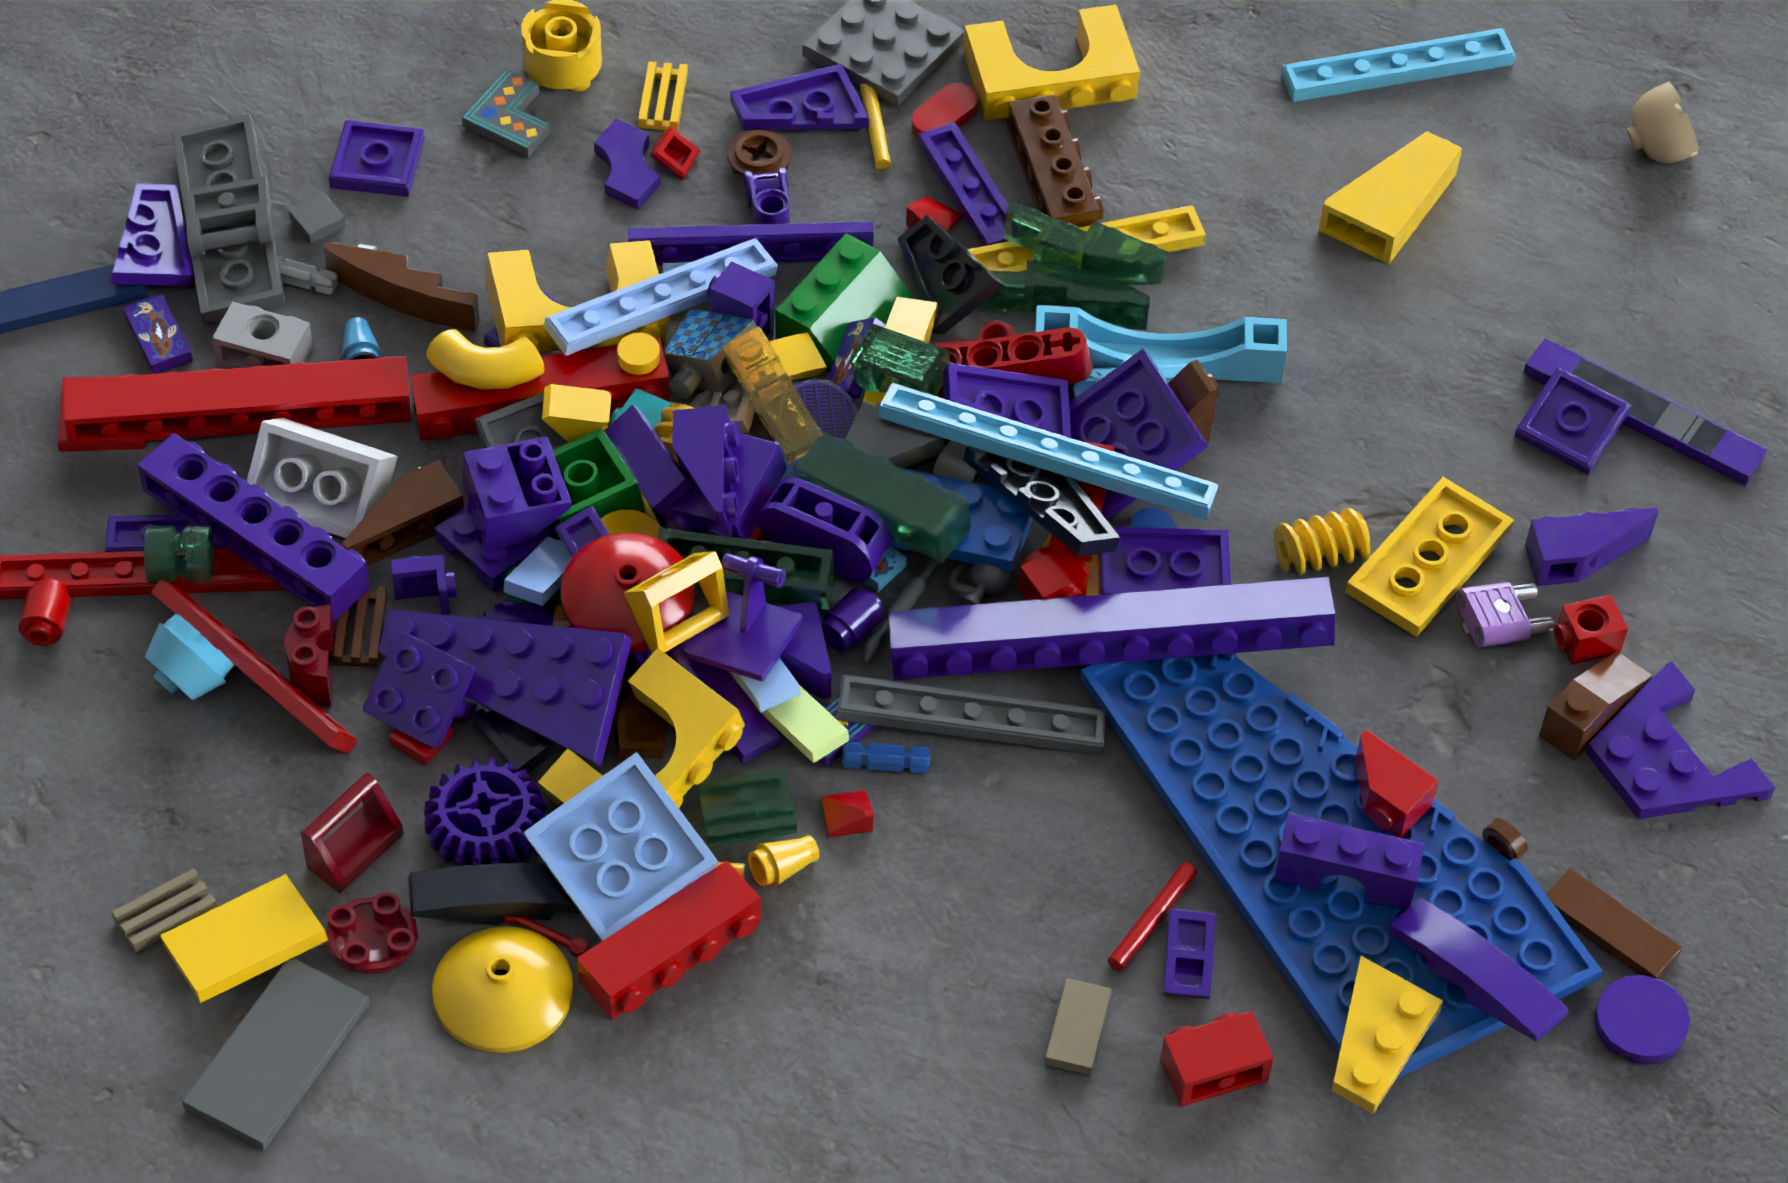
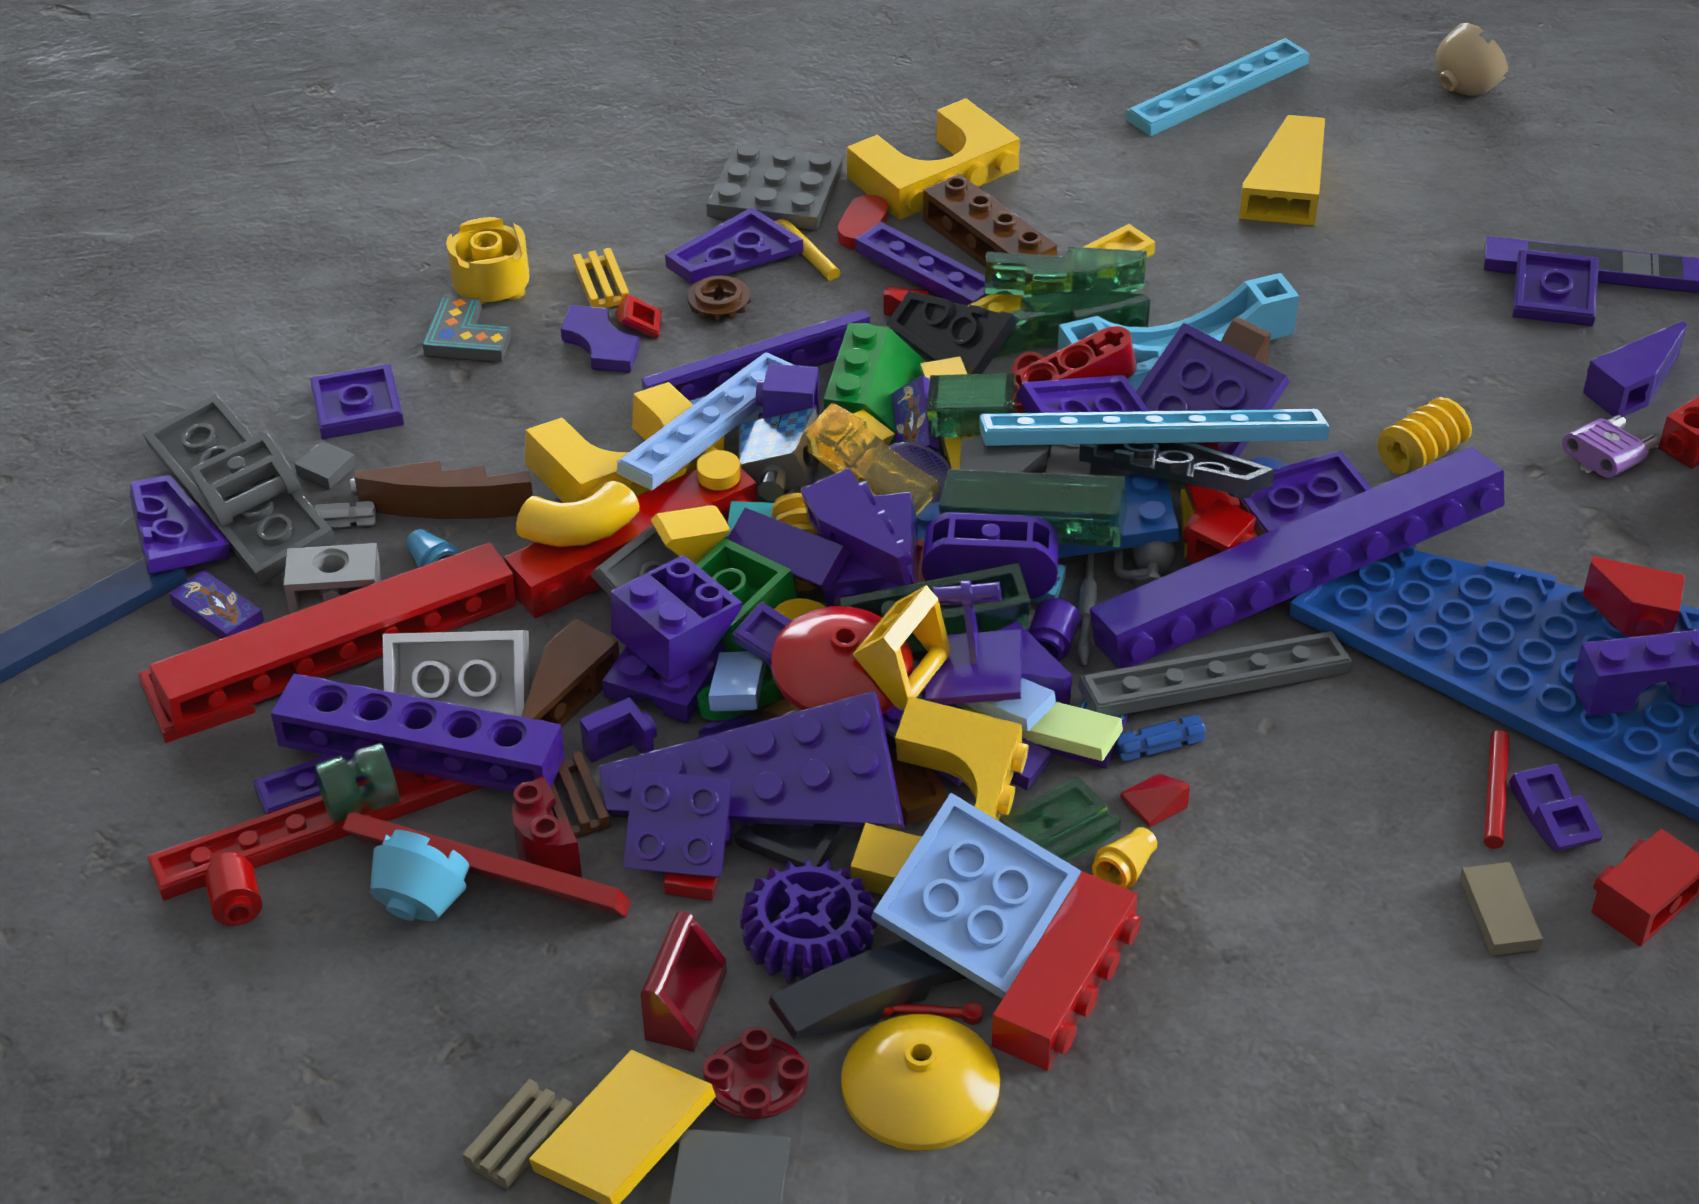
camera: 20 degrees left, 10 degrees down
(768, 197) = (749, 322): dark purple piece -> none
(1435, 580) = (1540, 410): yellow plate -> none

